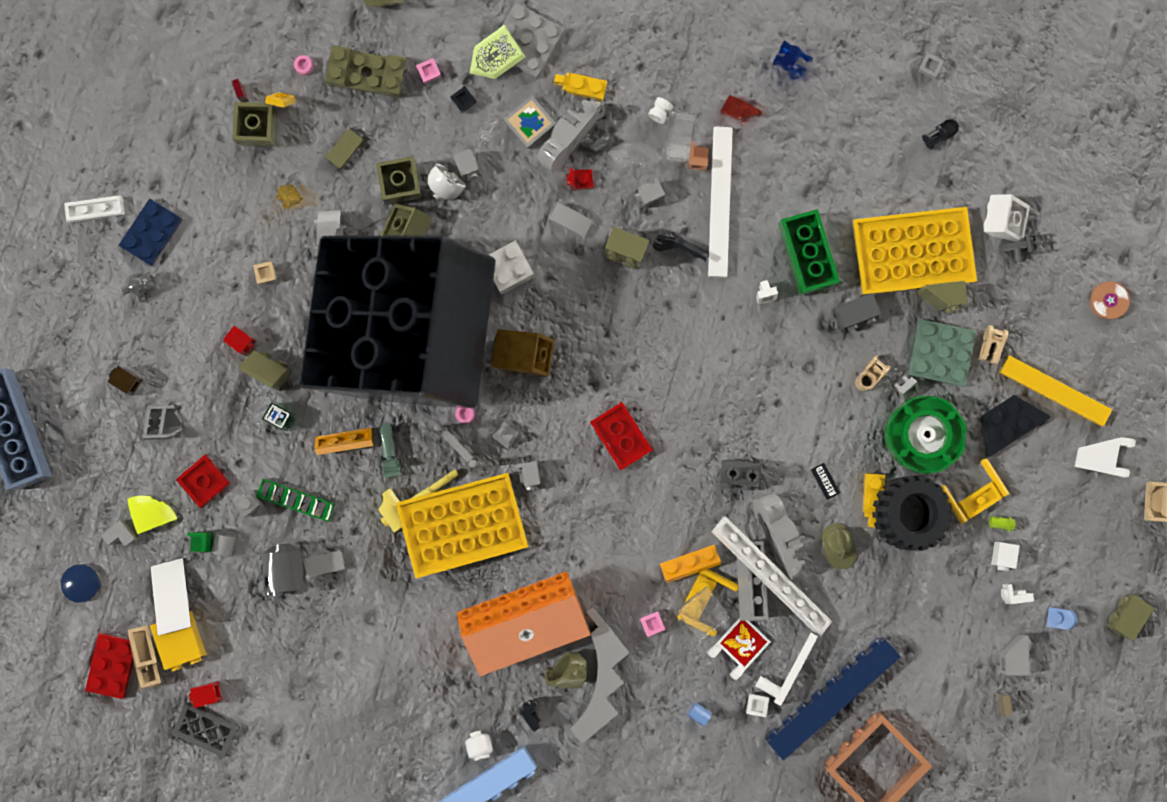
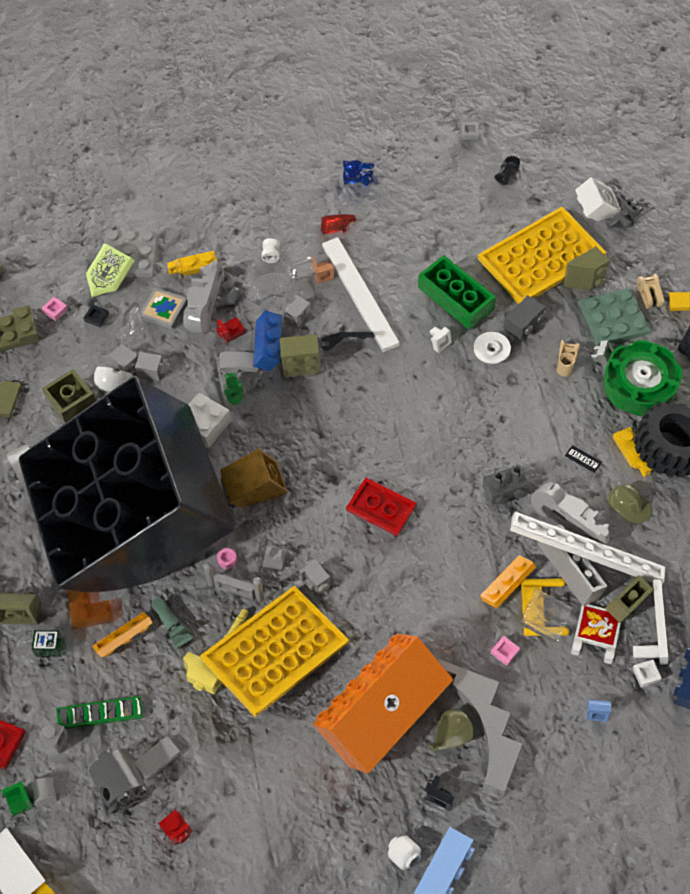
camera: 30 degrees left, 25 degrees down
(313, 630) = (175, 828): none -> red bracket
(324, 405) = (86, 614): none -> clear orange plate
(487, 183) = (150, 366): none -> light grey brick
(550, 247) = (233, 389): none -> green hips
(606, 213) = (267, 340): none -> blue brick
(781, 638) = (629, 598): none -> olive brick
(816, 323) = (495, 342): none -> white dish

